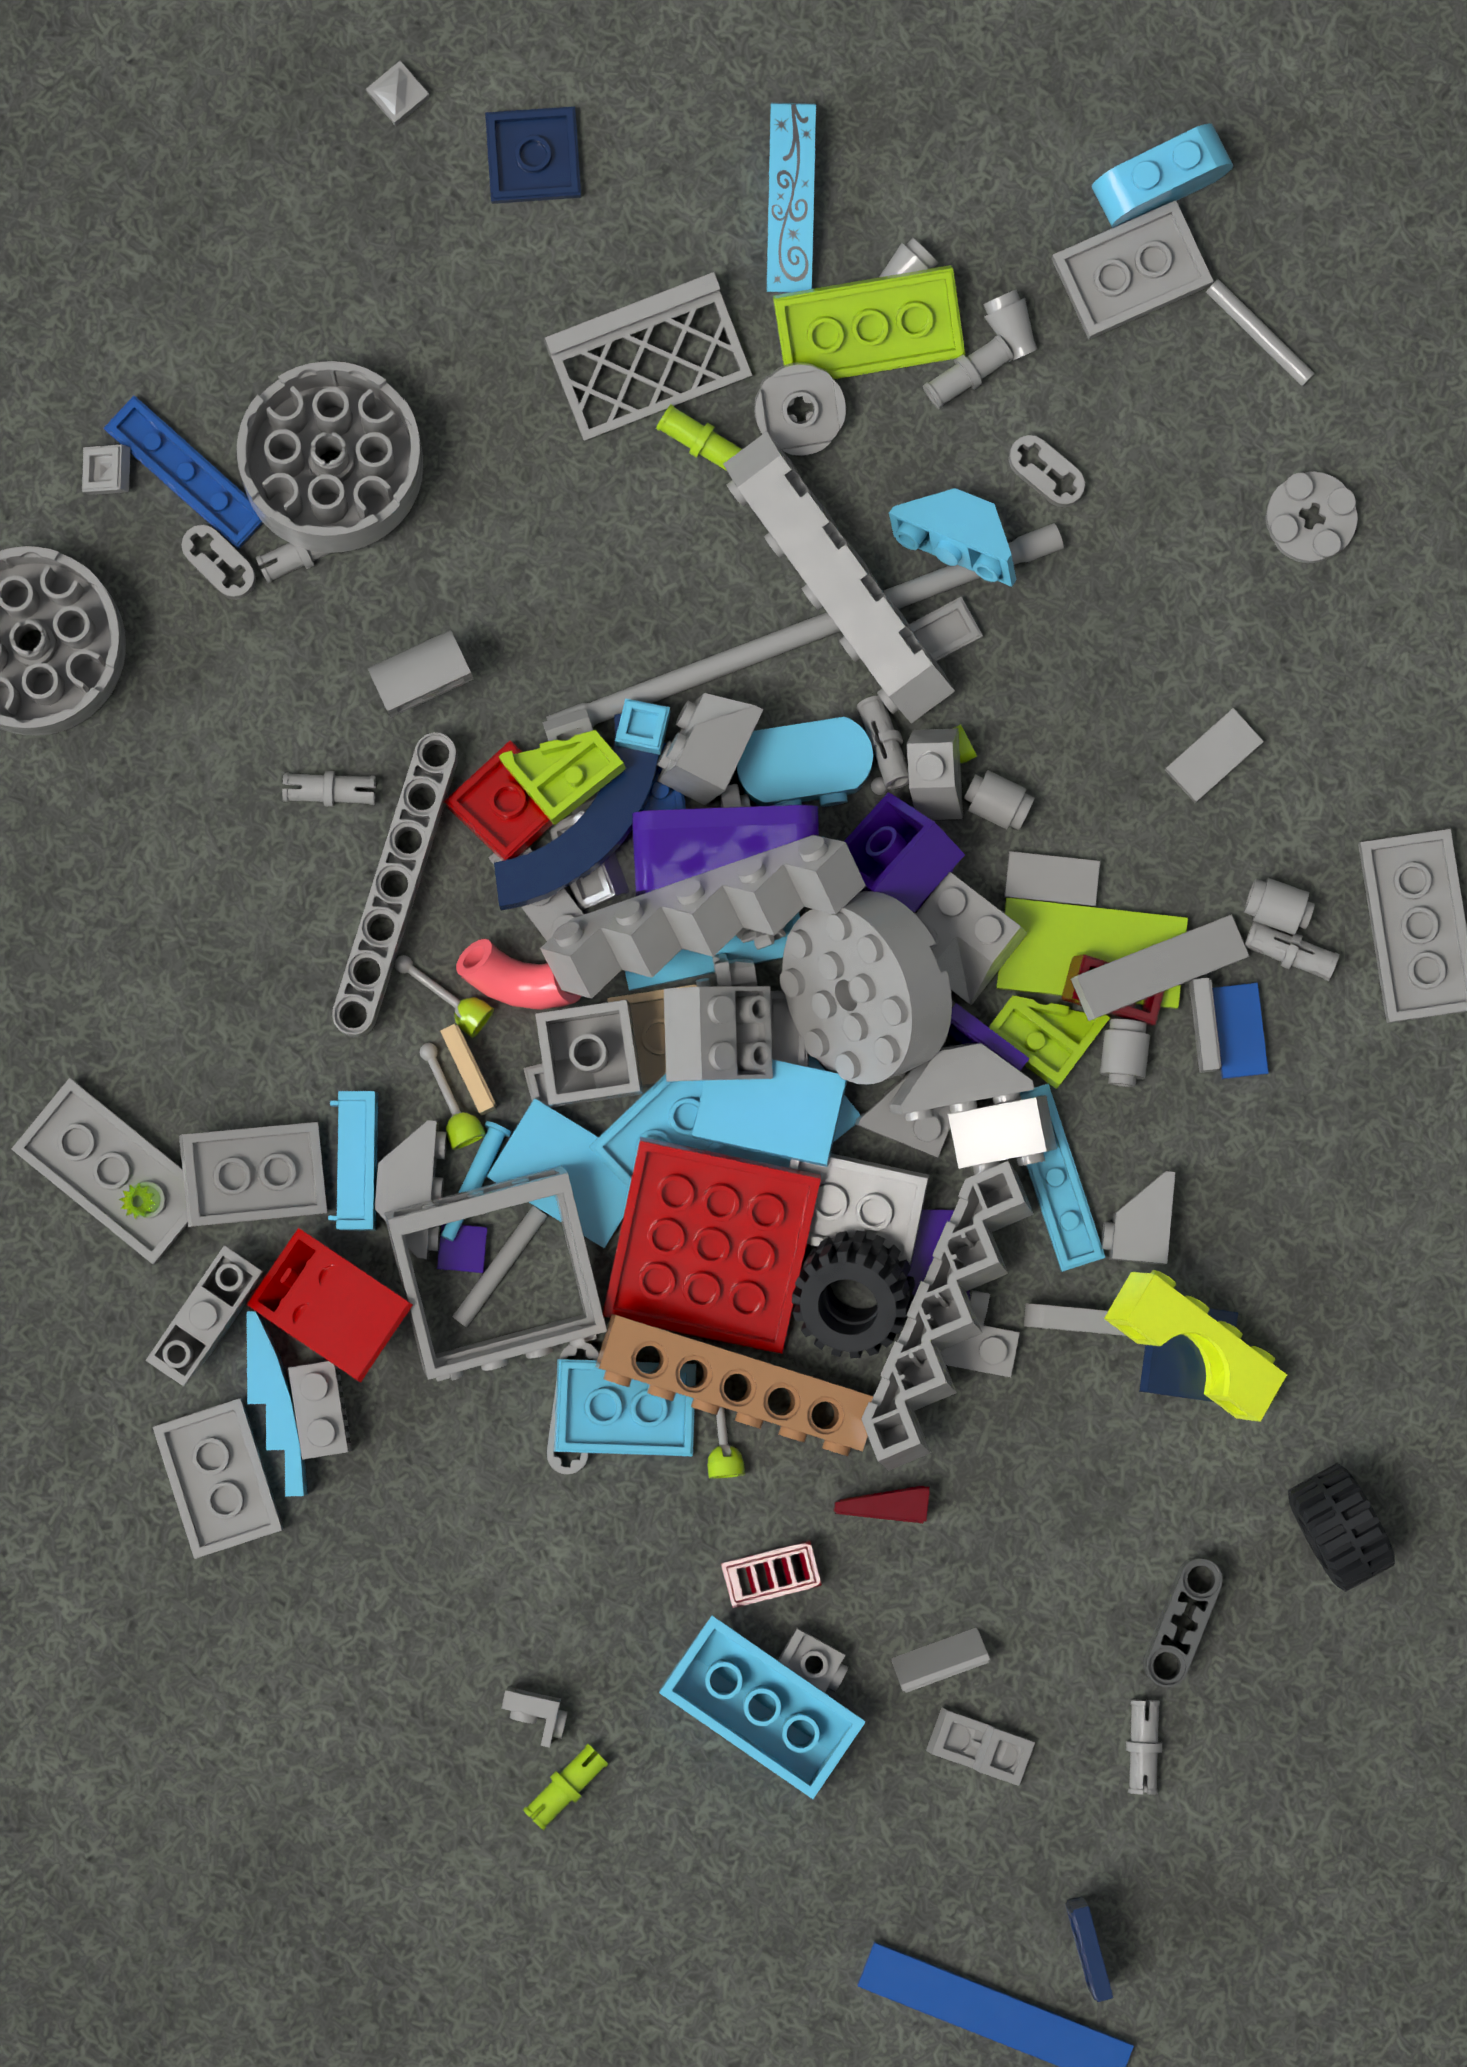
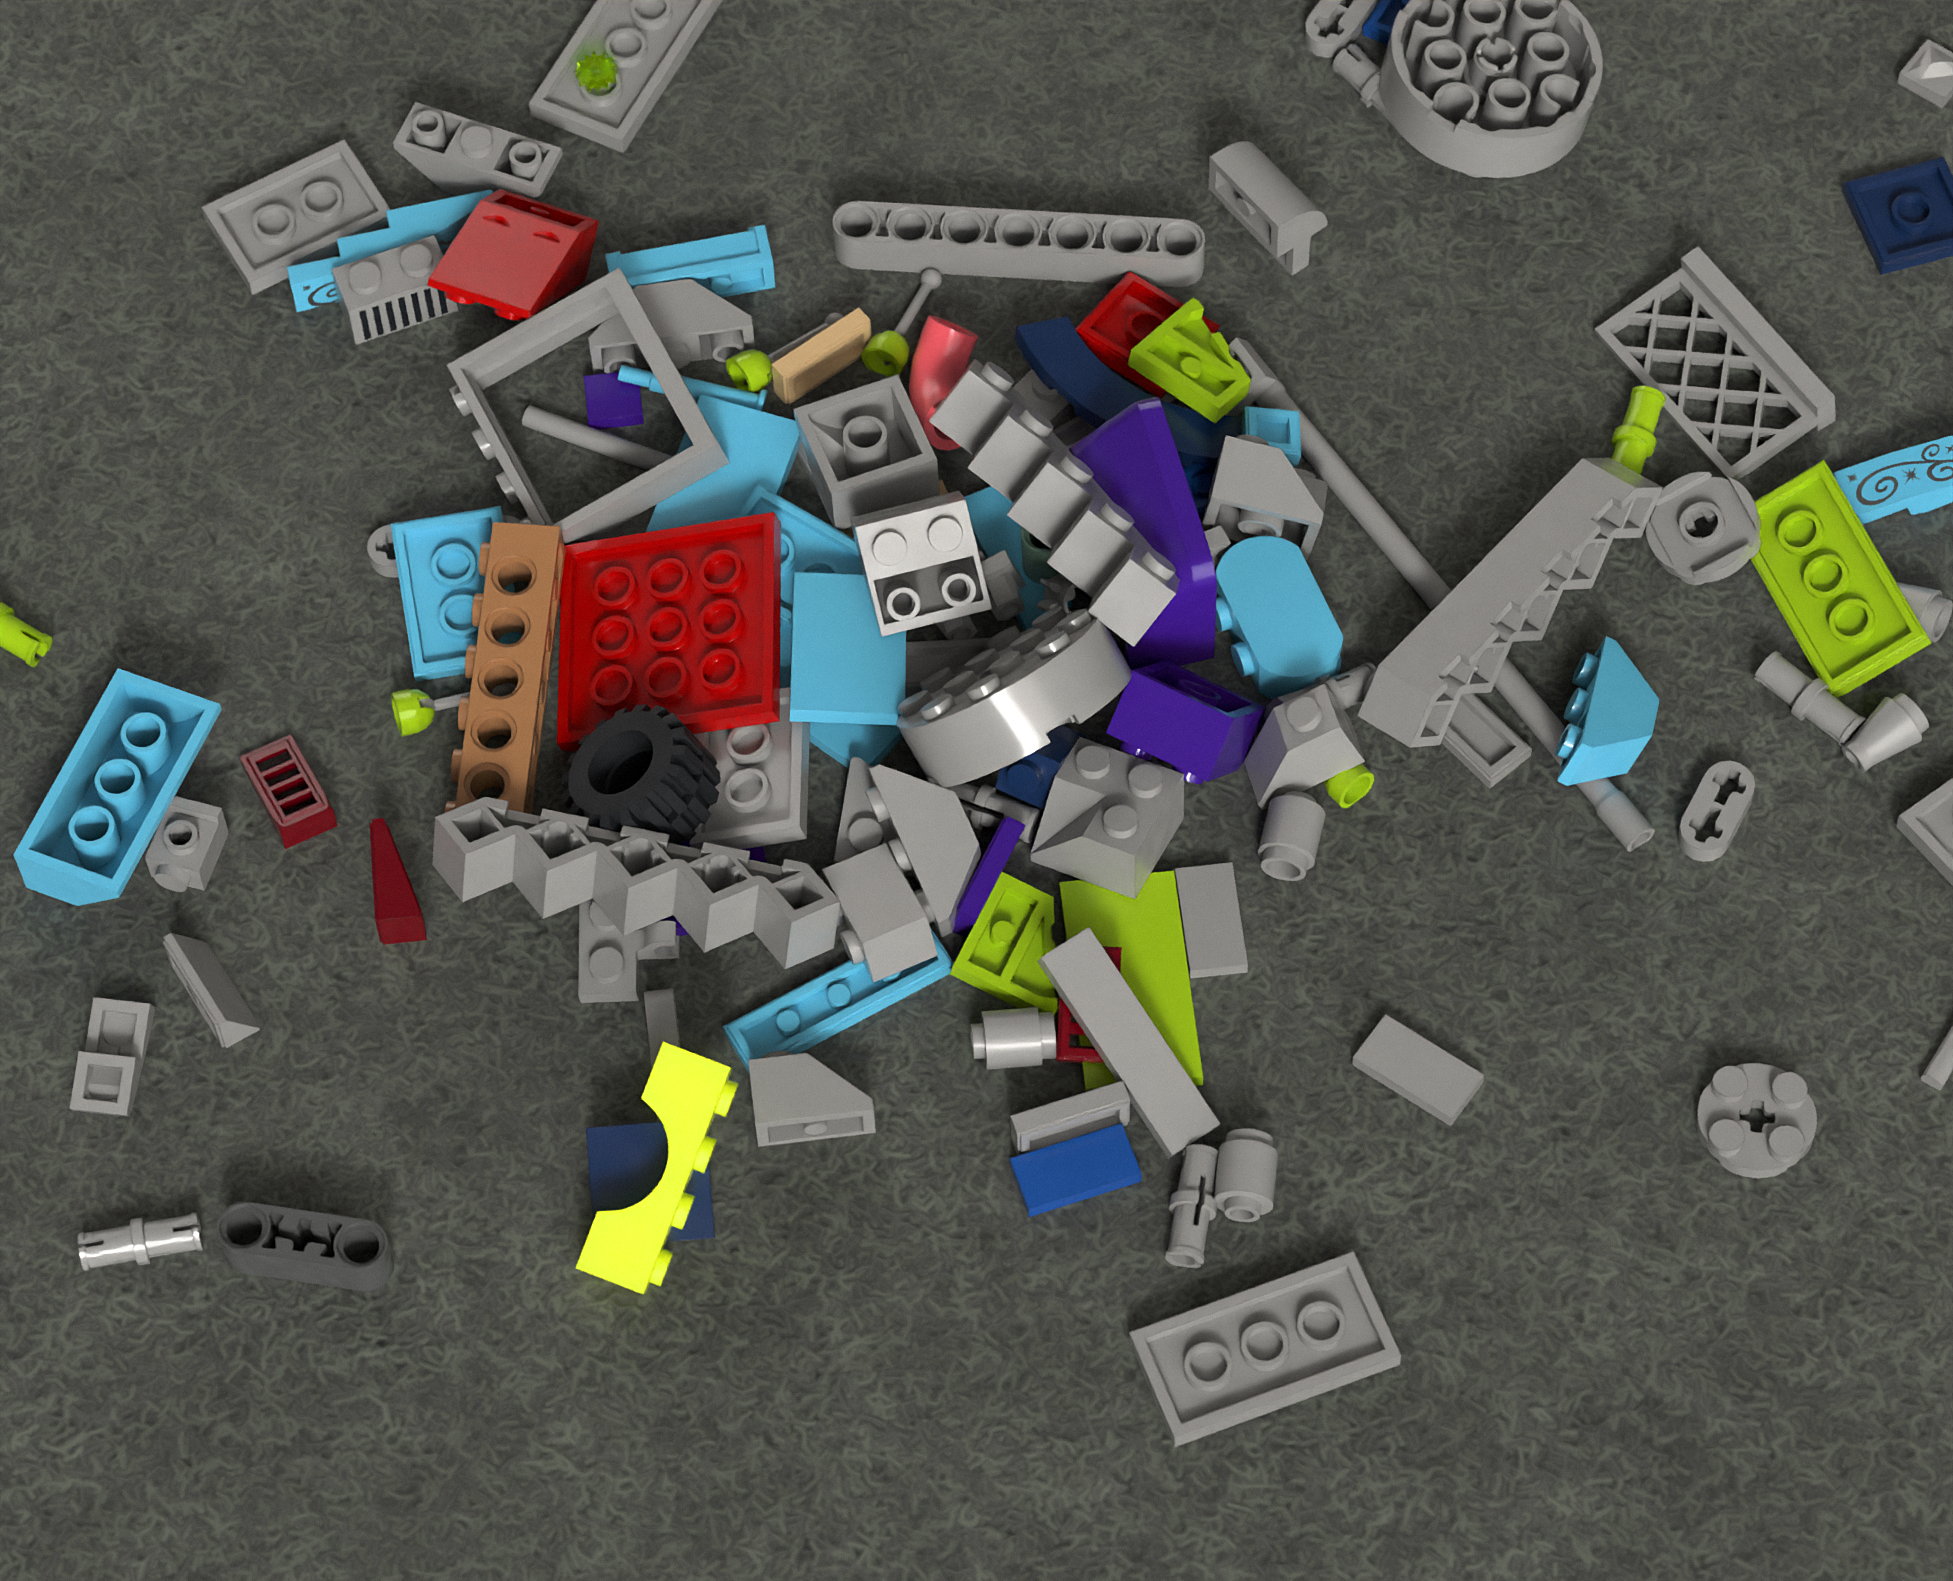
camera: 80 degrees right, 25 degrees down
(253, 1174) = (651, 169): light grey plate -> none
(329, 788) = (1114, 165): light grey pin -> none
(528, 1706) = (84, 574): light grey bracket -> none
(1341, 1527) = (456, 1387): black tyre -> none

